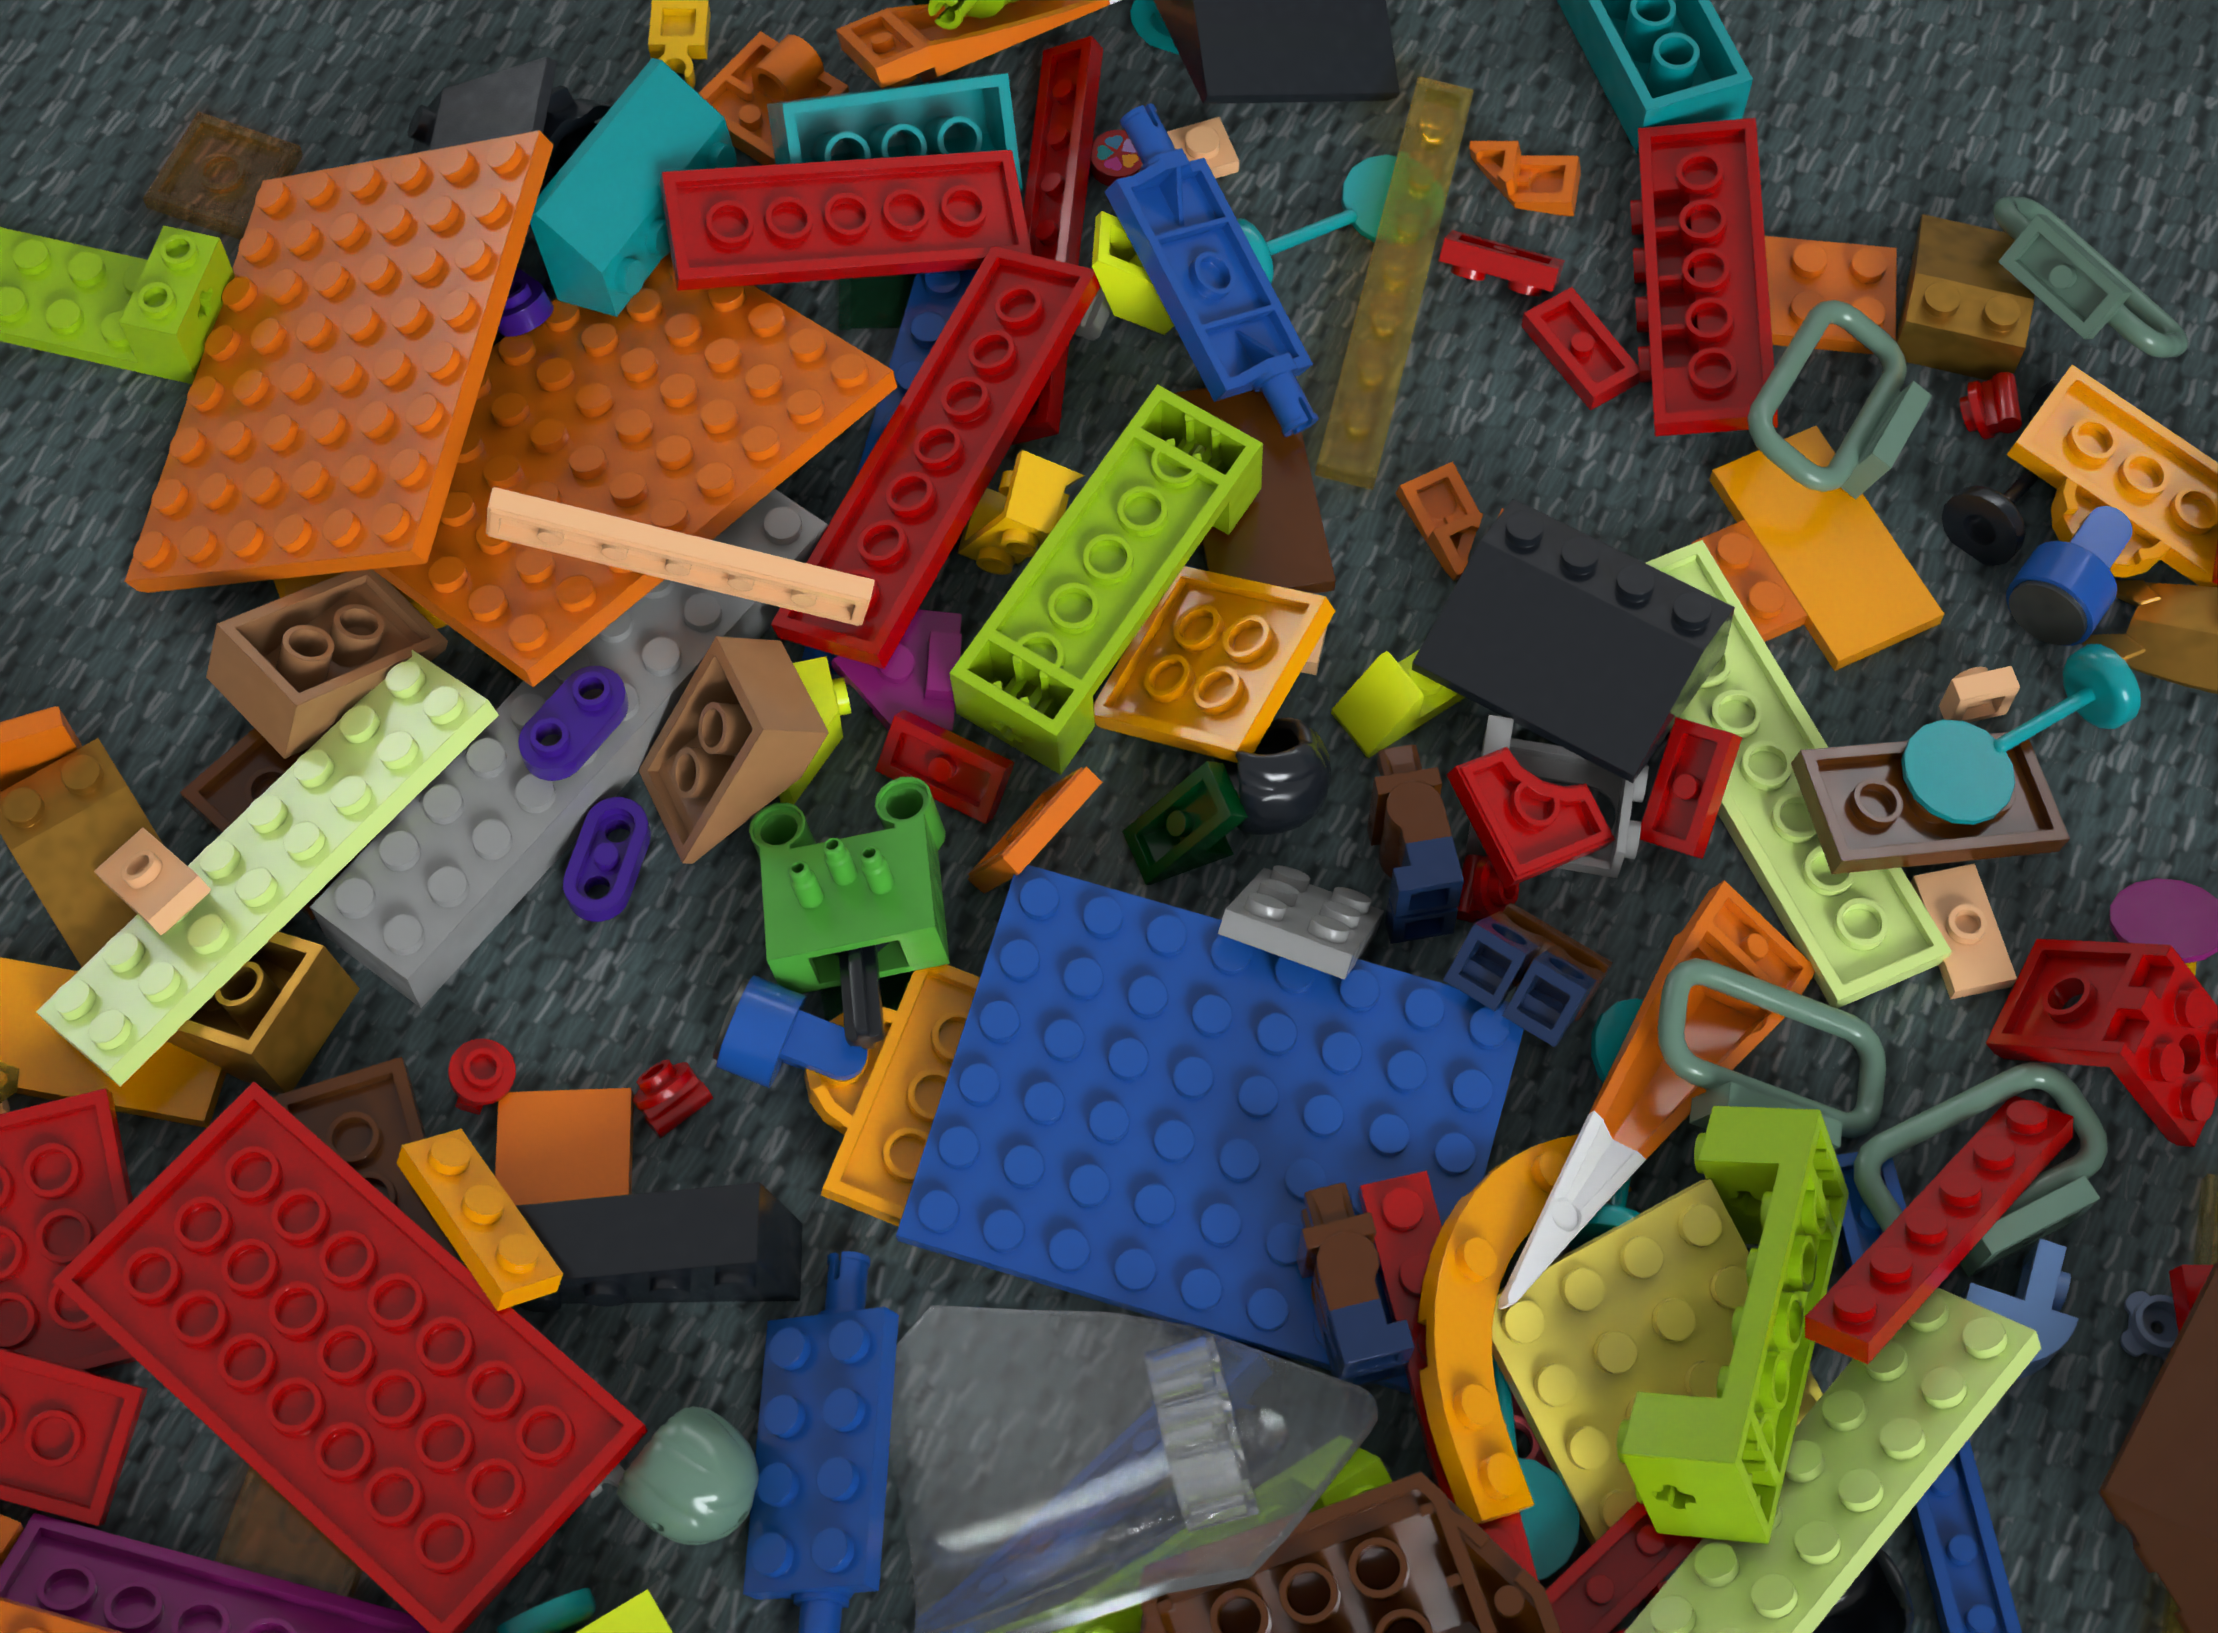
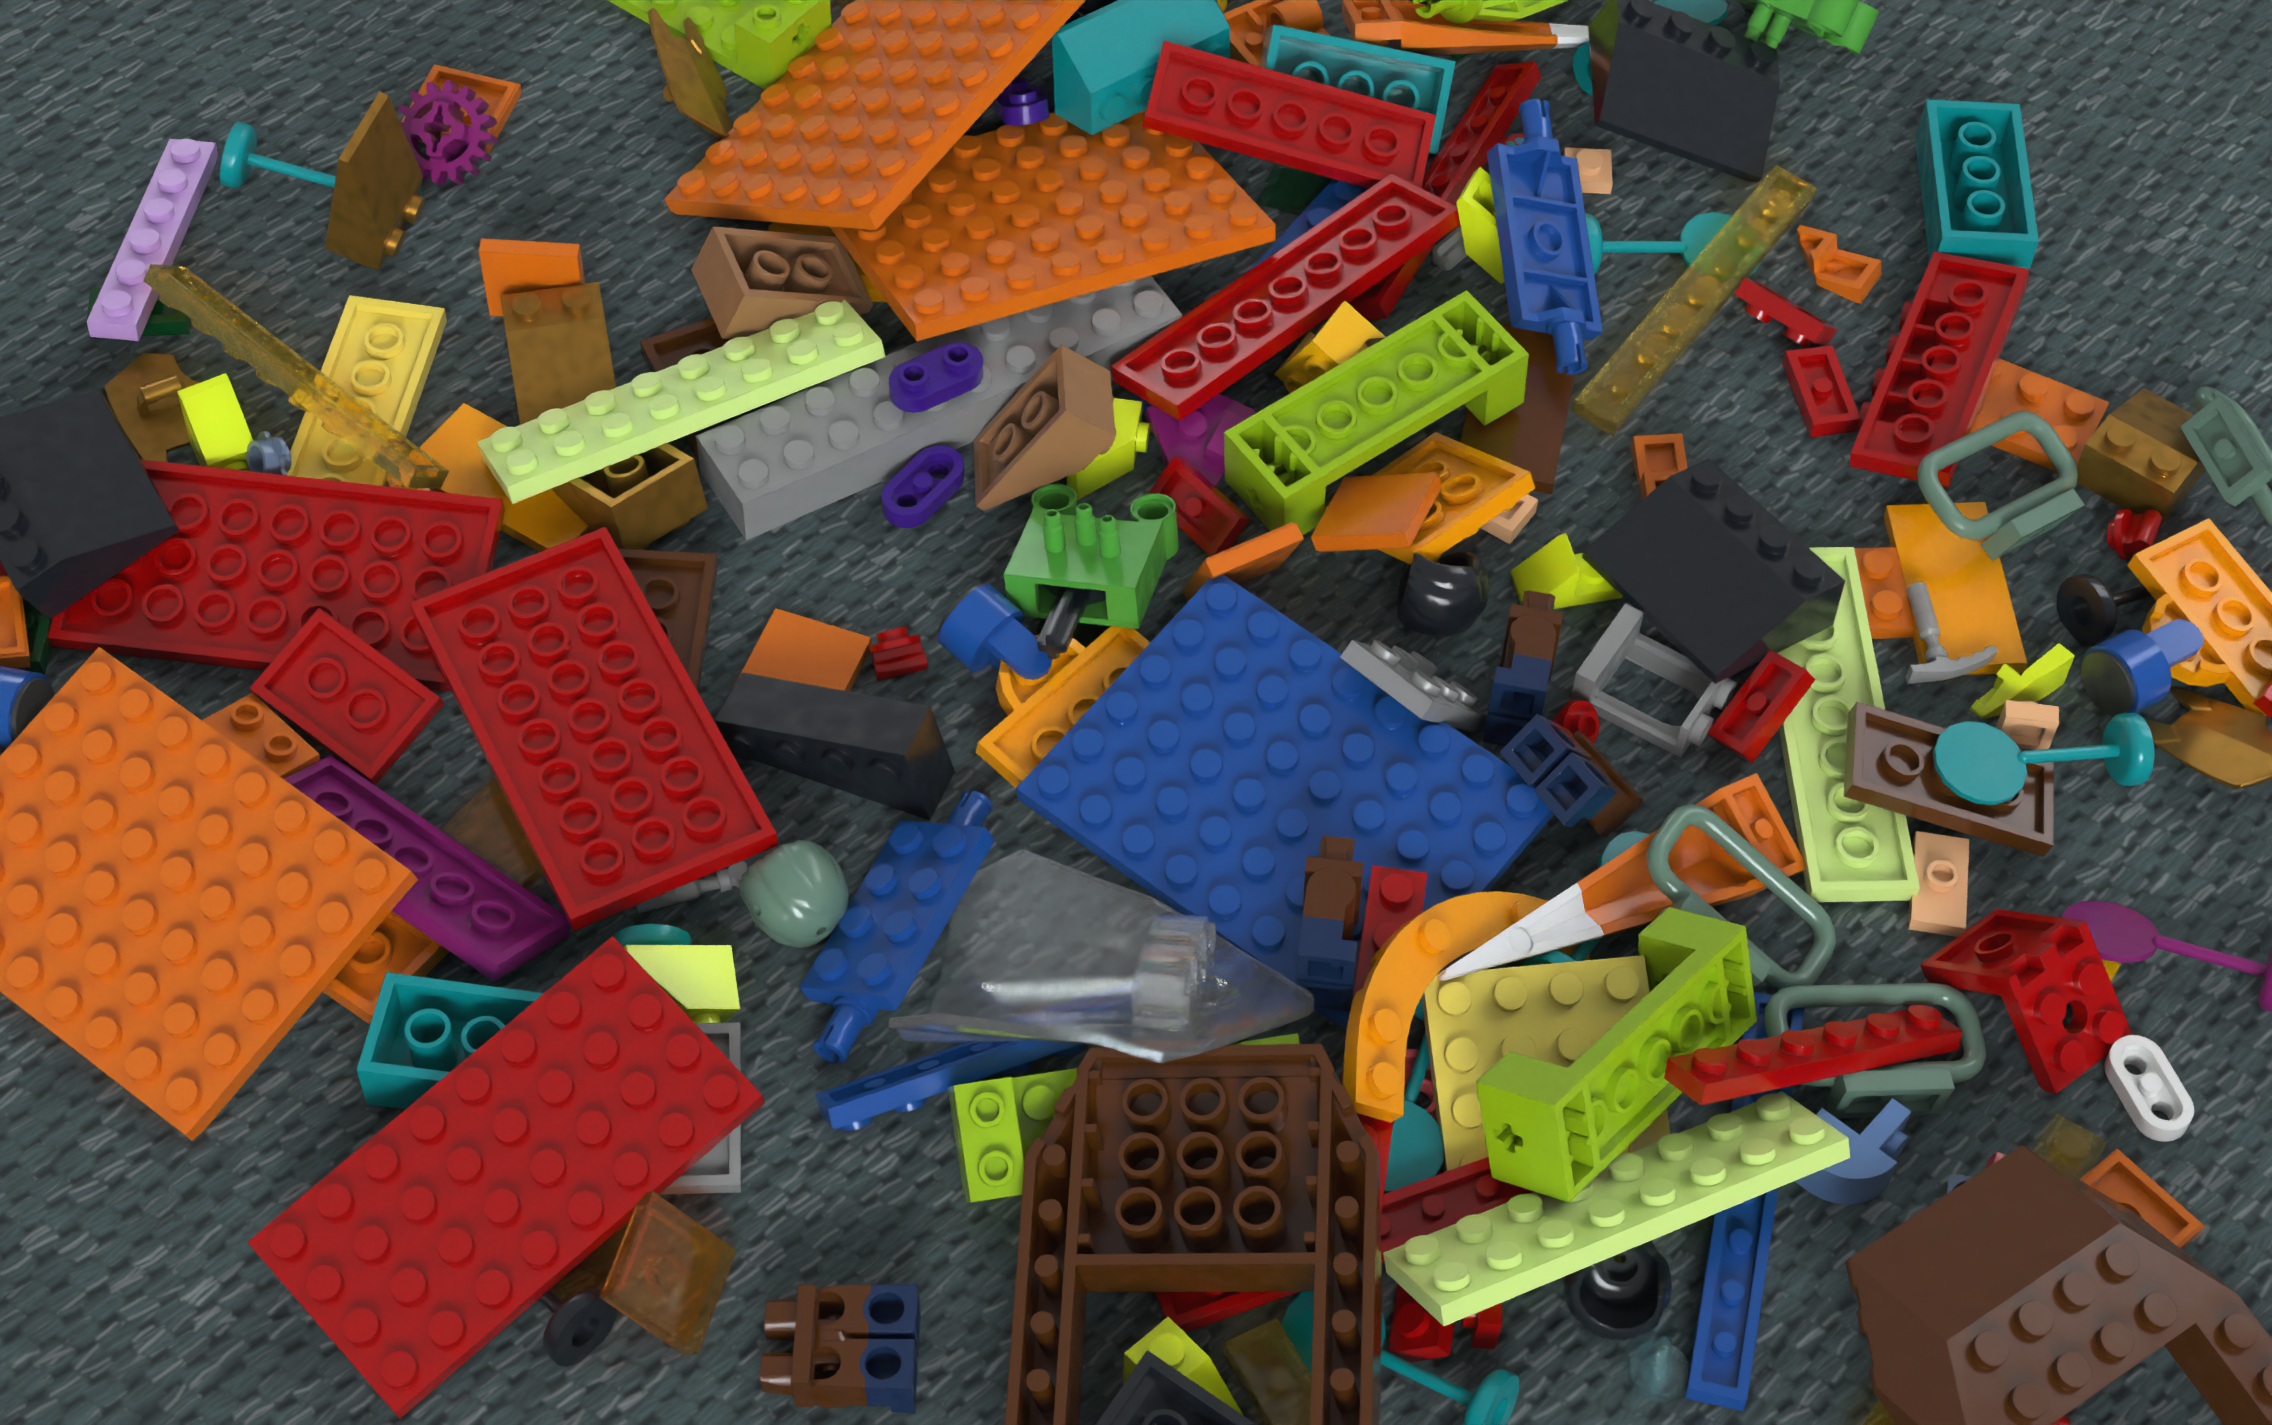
camera: 20 degrees right, 10 degrees down
(91, 405) = (691, 77): none -> pearl gold shield
(152, 881) = (594, 381): light nougat plate -> none
(479, 1219) = (722, 668): light orange plate -> none
(480, 1074) = (767, 590): red plate -> none
(678, 557) = (1059, 284): light nougat tile -> none
(1164, 707) = (1376, 512): none -> orange tile
(1186, 825) = (1361, 604): dark green slope -> none
(1524, 820) = (1619, 683): red tile -> none
(1826, 615) = (1938, 664): none -> light grey piece
(1943, 654) = (2033, 685): none -> neon yellow slope

